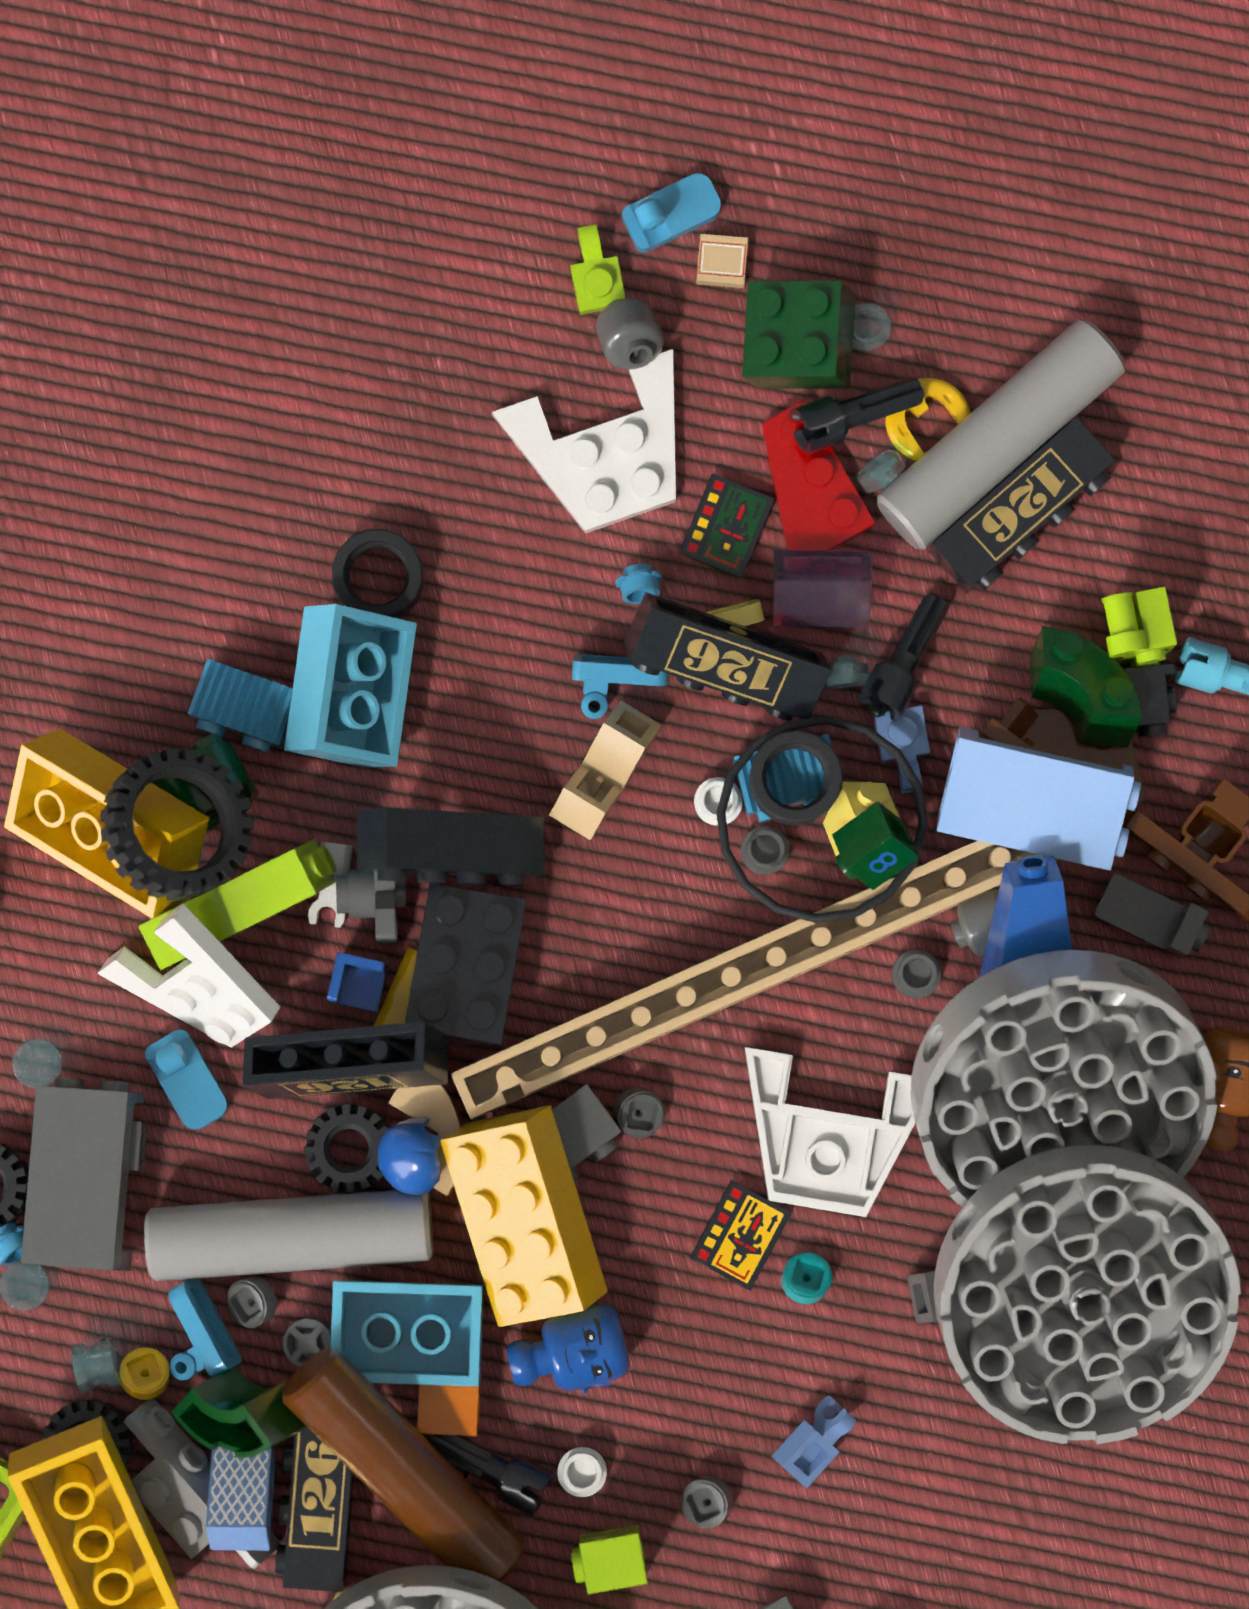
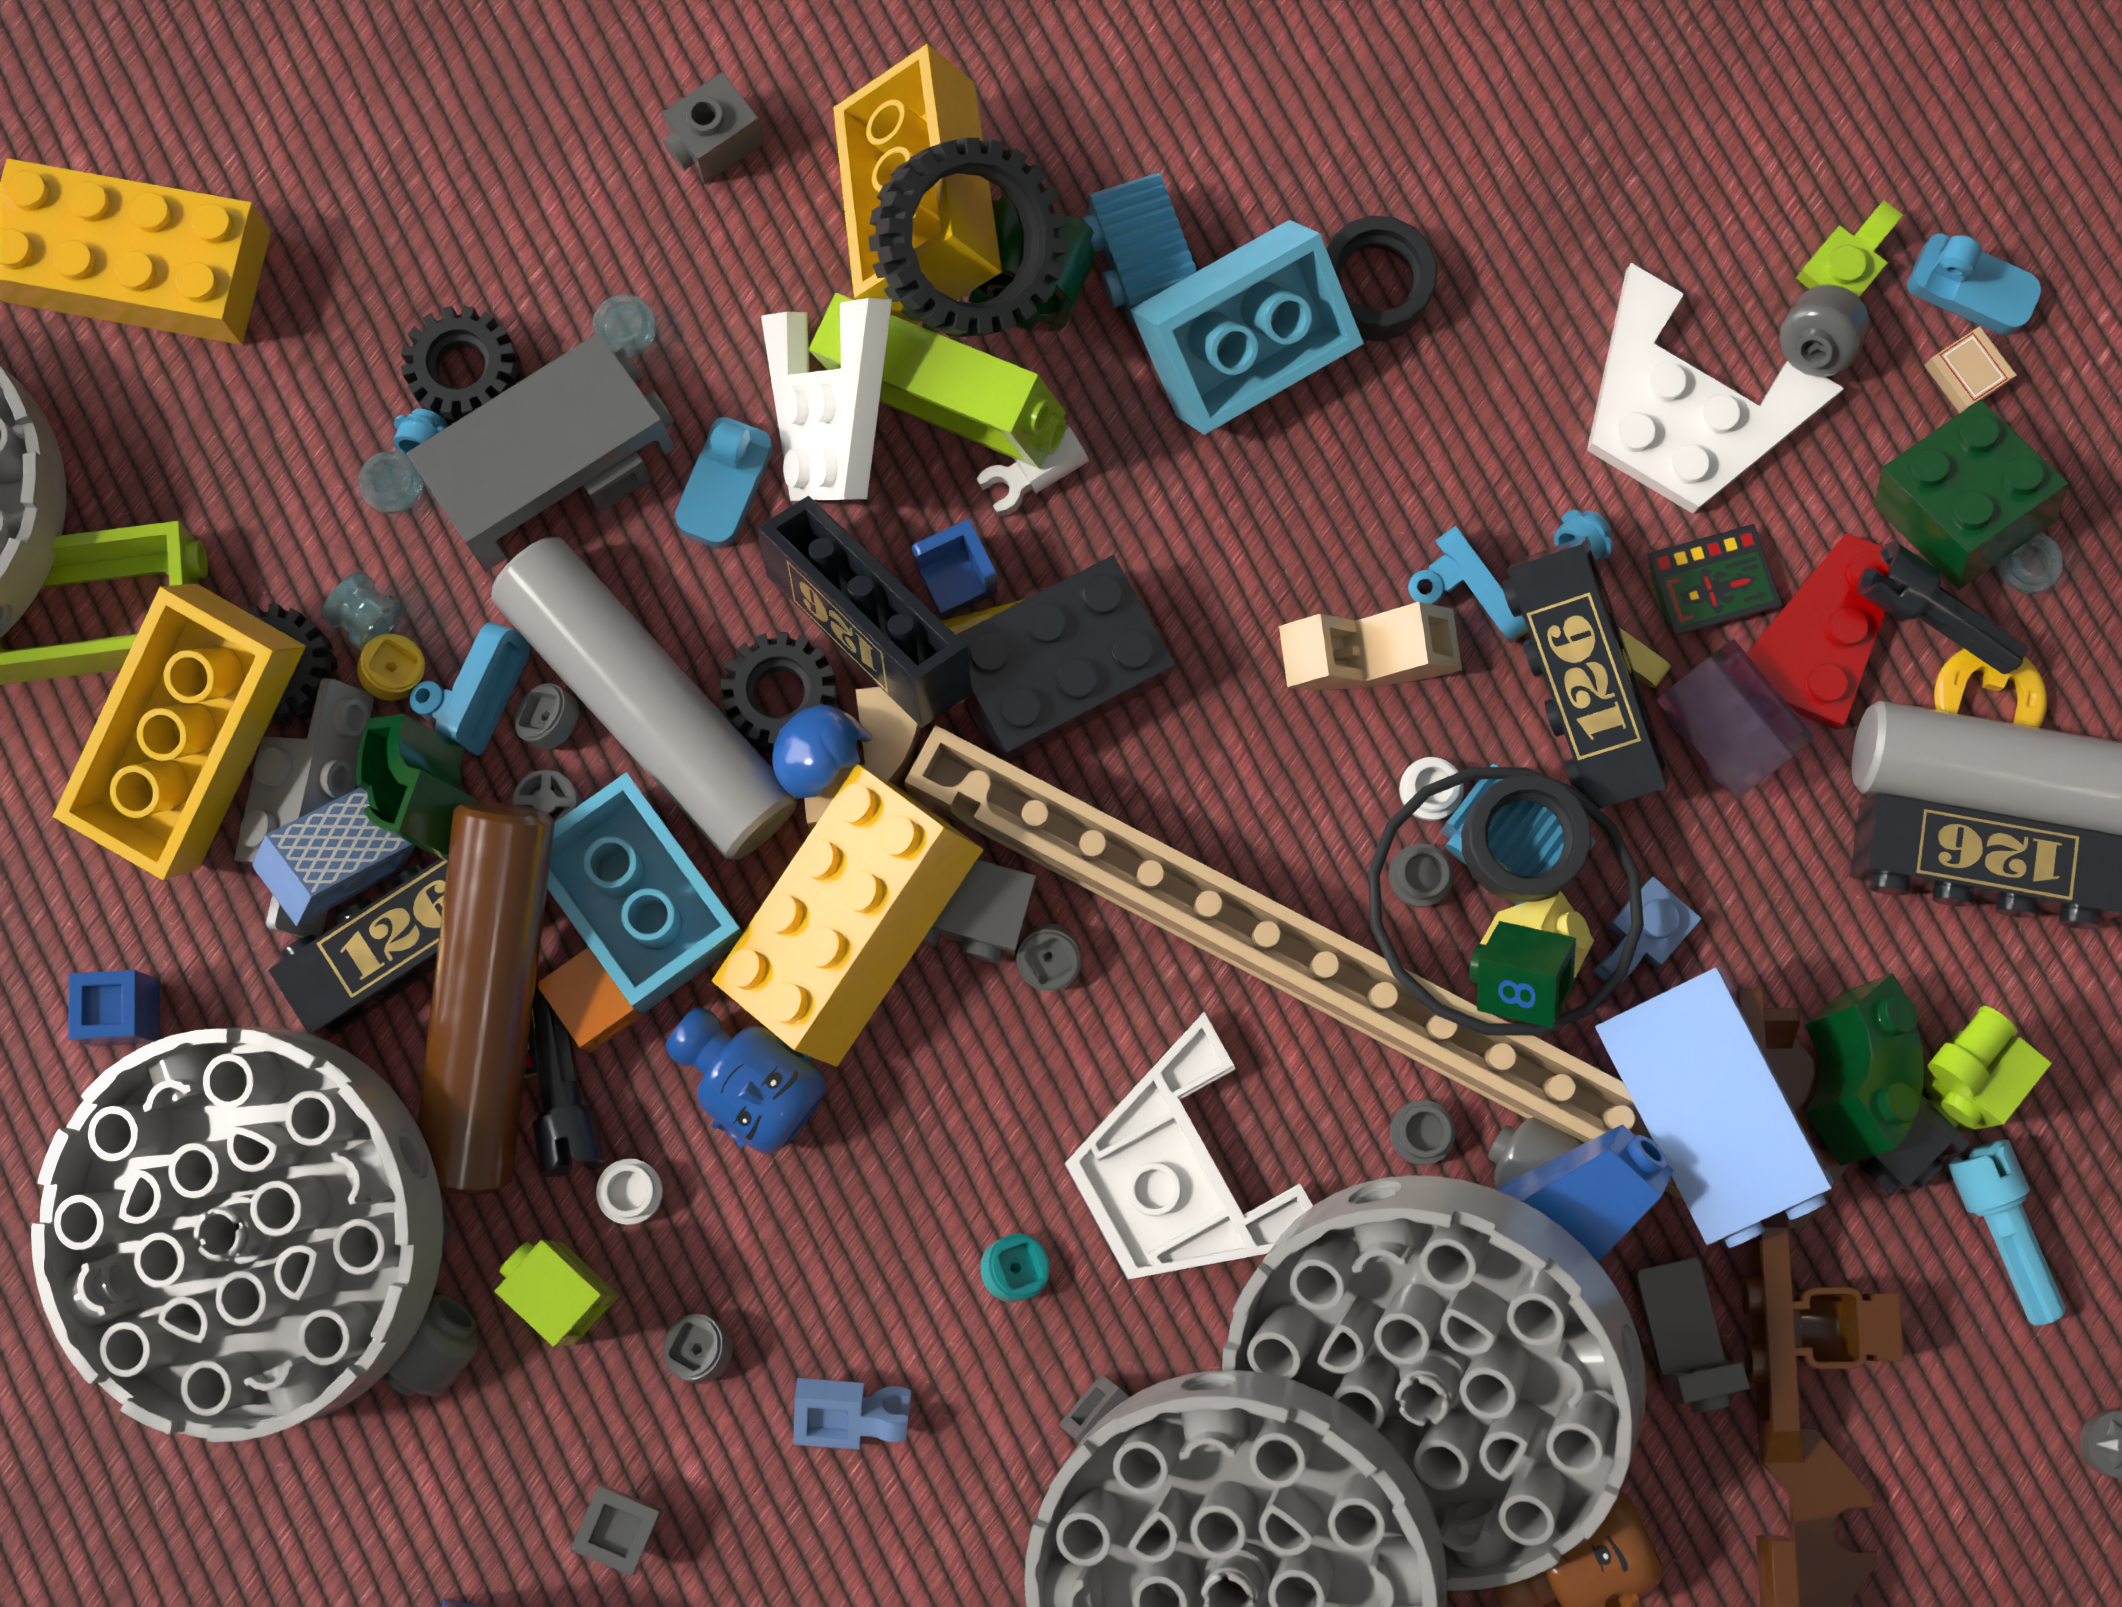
camera: 45 degrees right, 5 degrees down
(367, 898) = (1060, 512): dark grey plant -> none
(449, 844) = (1169, 538): black brick -> none
(740, 1235) = (1005, 1163): piece -> none
(847, 673) = (1668, 815): clear light blue tile -> none
(881, 471) = (1901, 688): clear light blue tile -> none
(893, 681) = (1705, 866): black piece -> none

